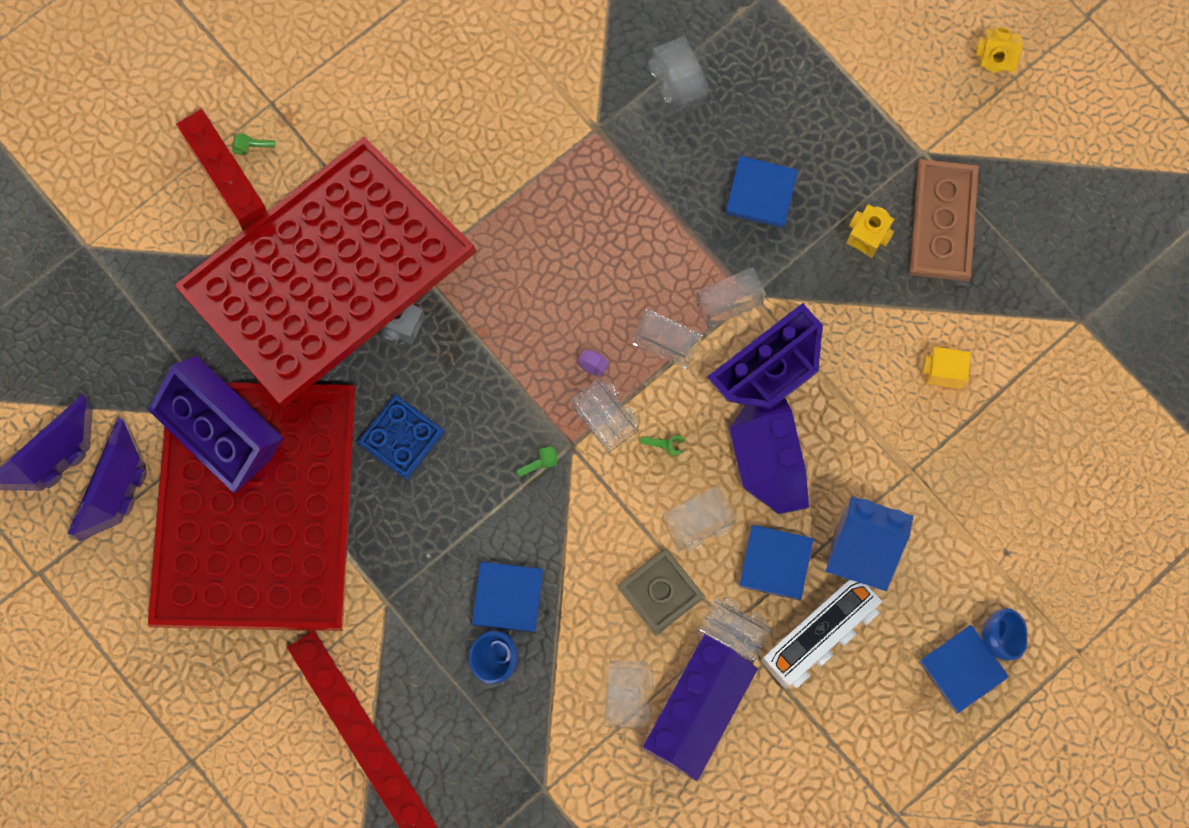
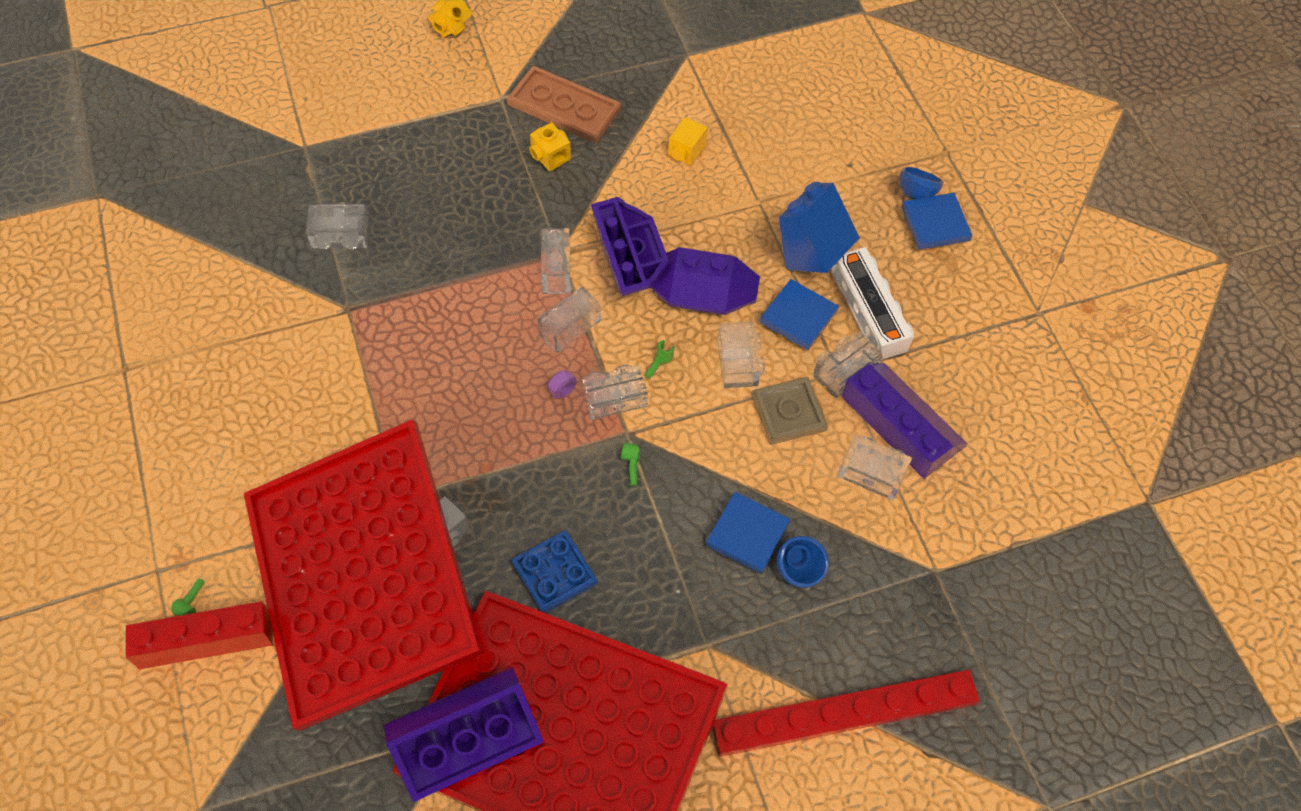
camera: 65 degrees left, 15 degrees down
(761, 192) = (475, 208): blue tile -> none

